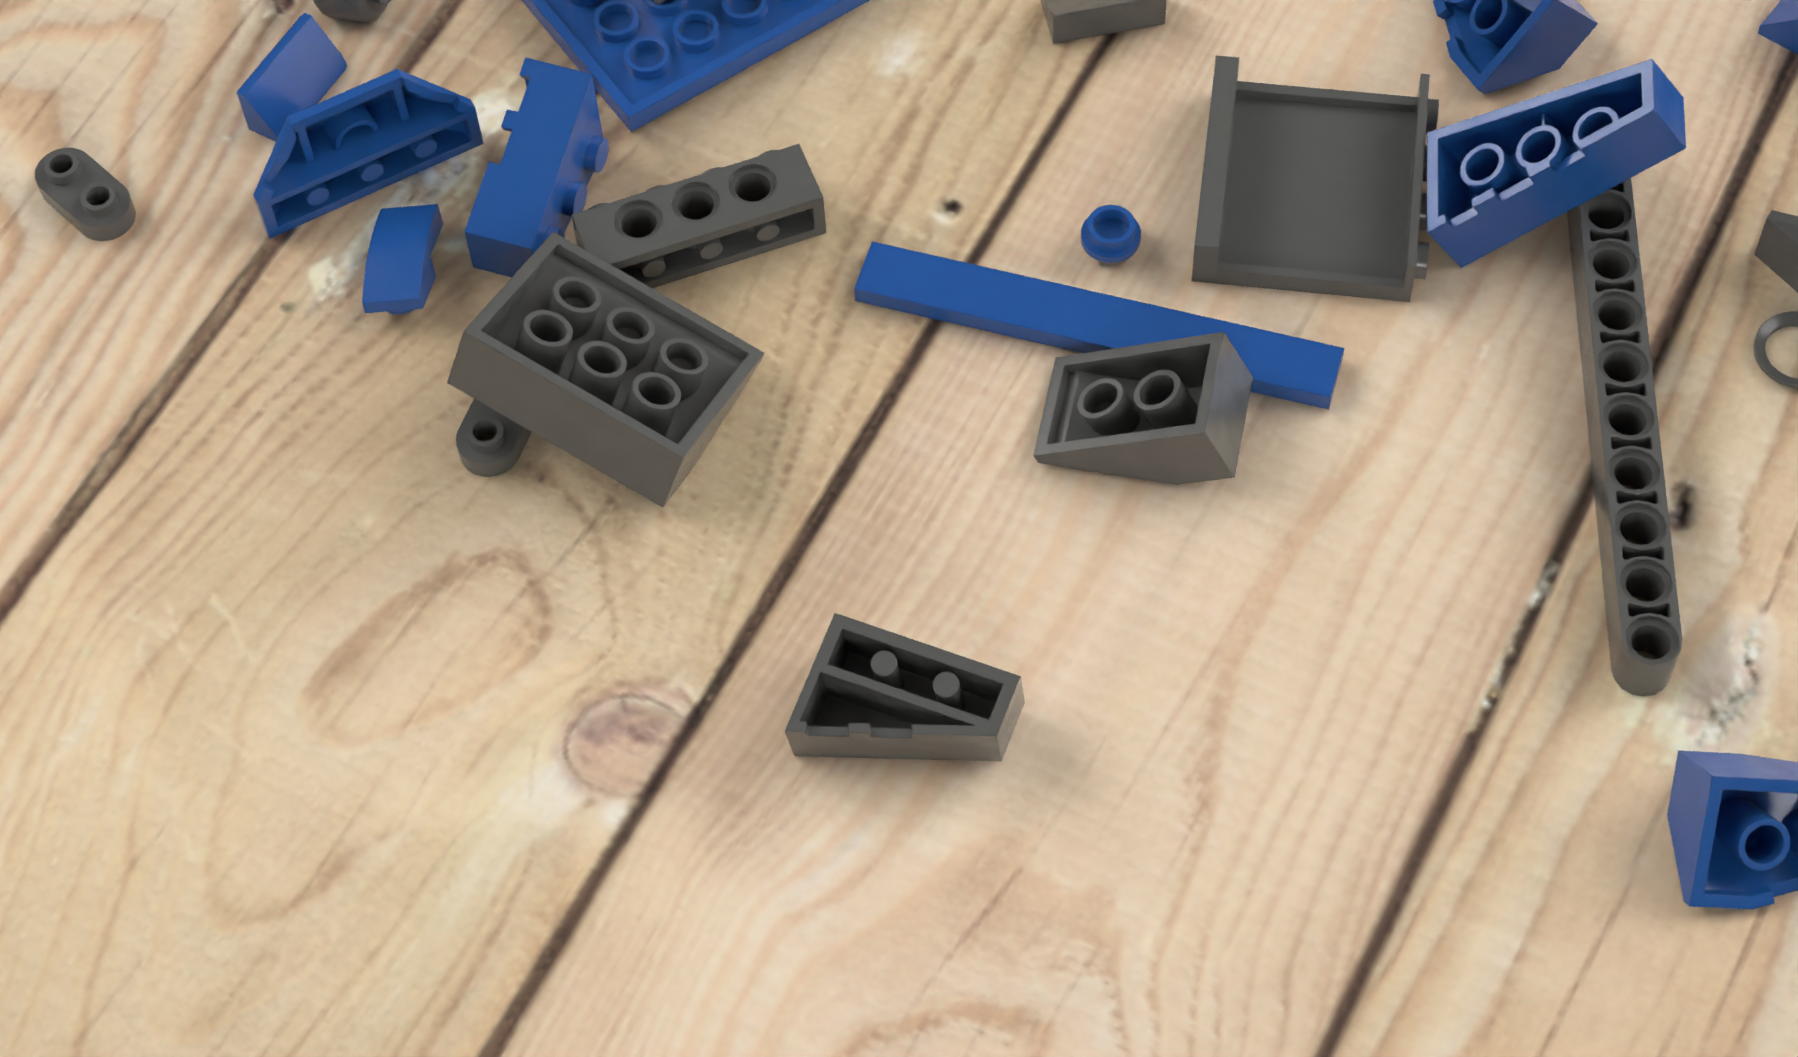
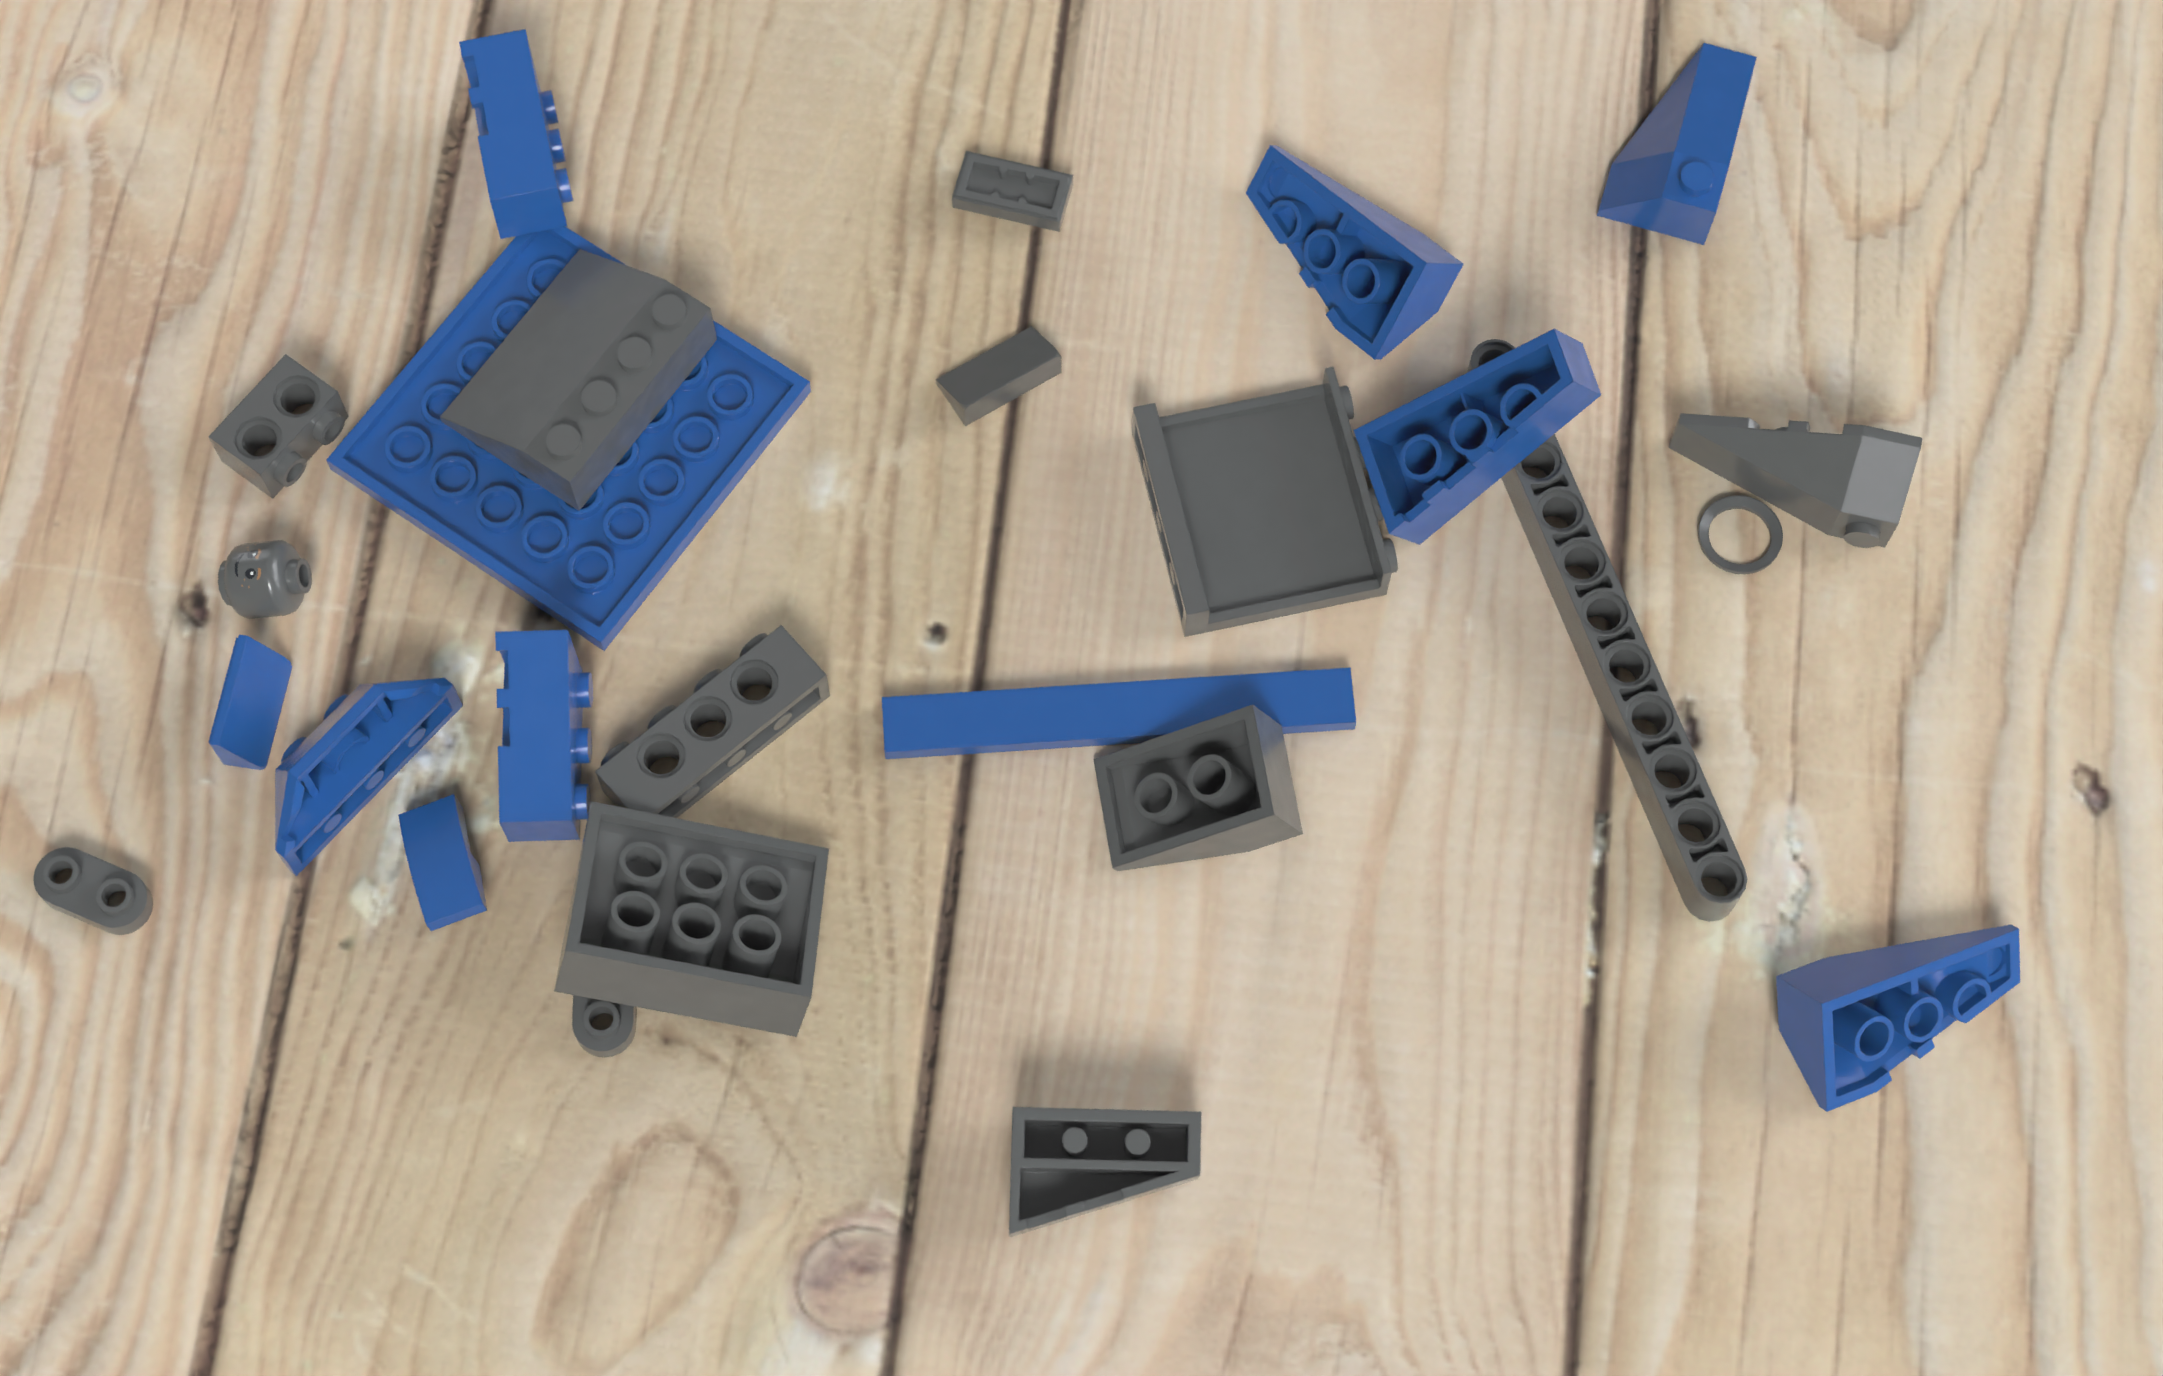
camera: 25 degrees left, 10 degrees up
(1110, 234) = (1097, 617): blue plate -> none

